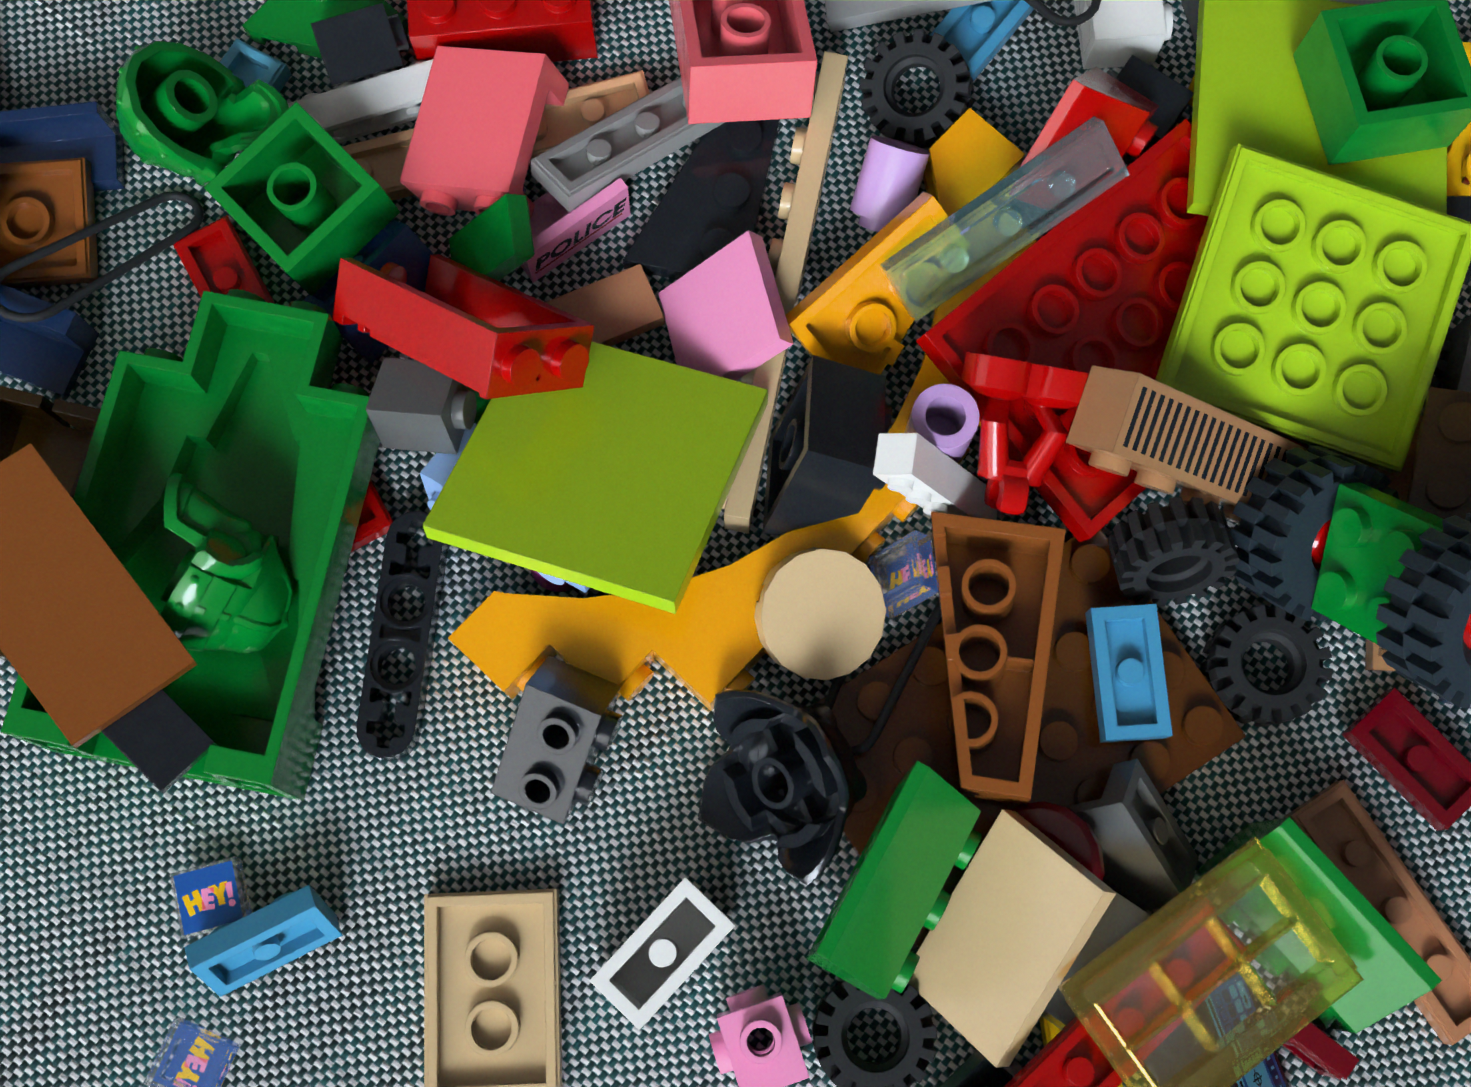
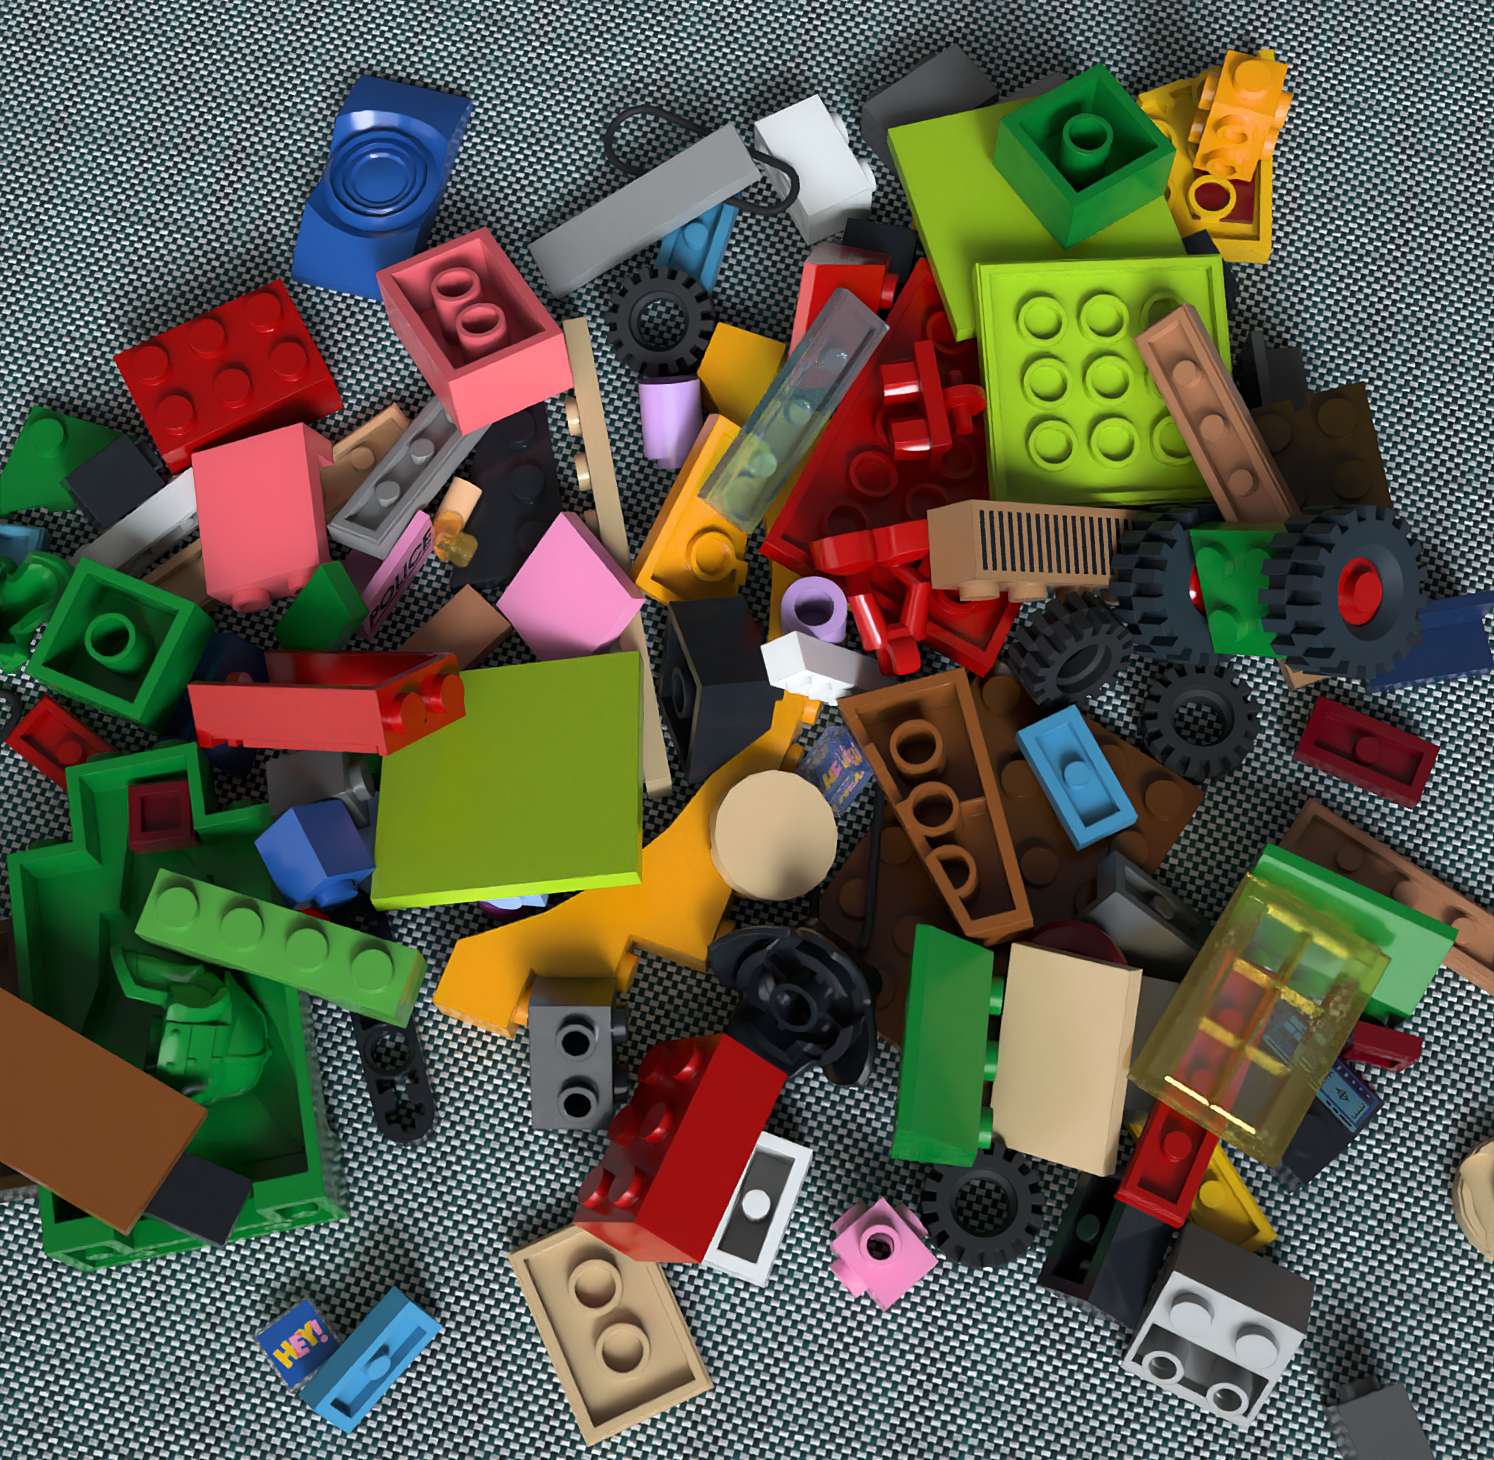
camera: 20 degrees left, 5 degrees down
(272, 369) = (161, 817): none -> dark red tile
(326, 537) = (282, 945): none -> bright green arch
(390, 464) = (315, 856): none -> blue brick
(613, 872) = (679, 1149): none -> red brick
(646, 199) = (449, 521): none -> arm
(1125, 289) = (919, 381): none -> red hips
(1409, 387) = (1214, 419): none -> nougat tile

